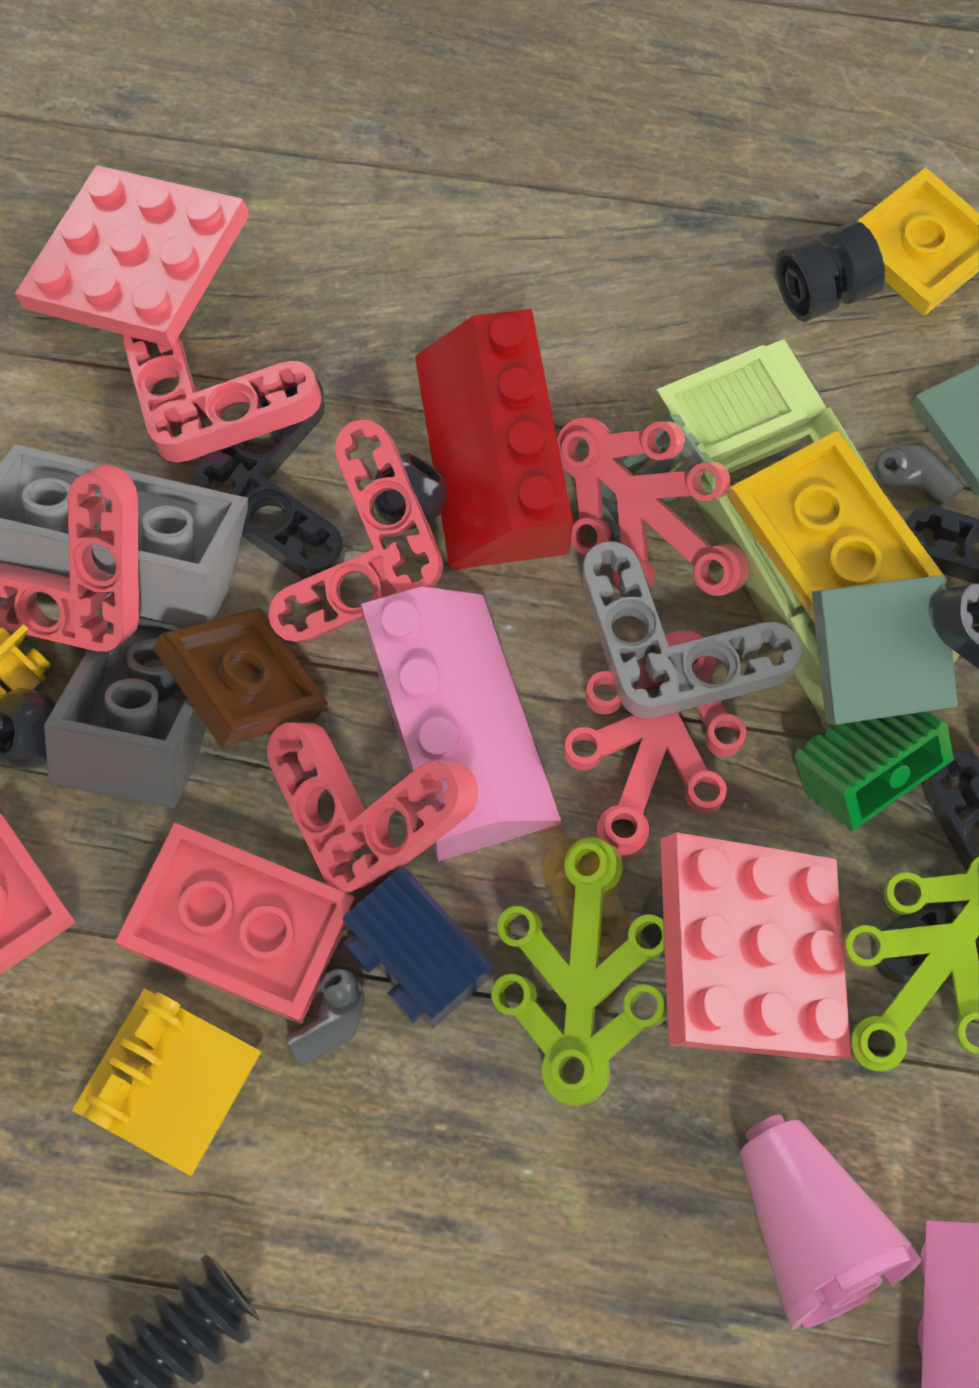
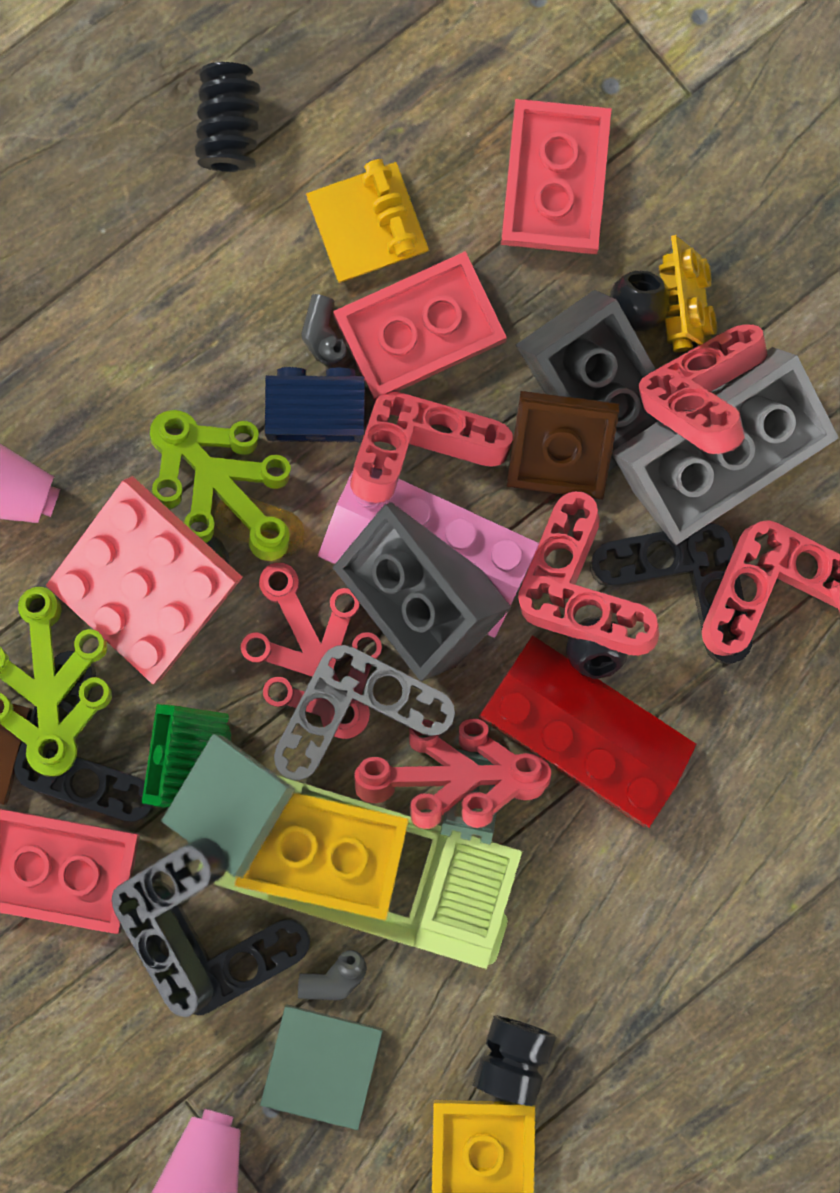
camera: 130 degrees right, 15 degrees up
(511, 670) = (420, 592): none -> dark grey slope

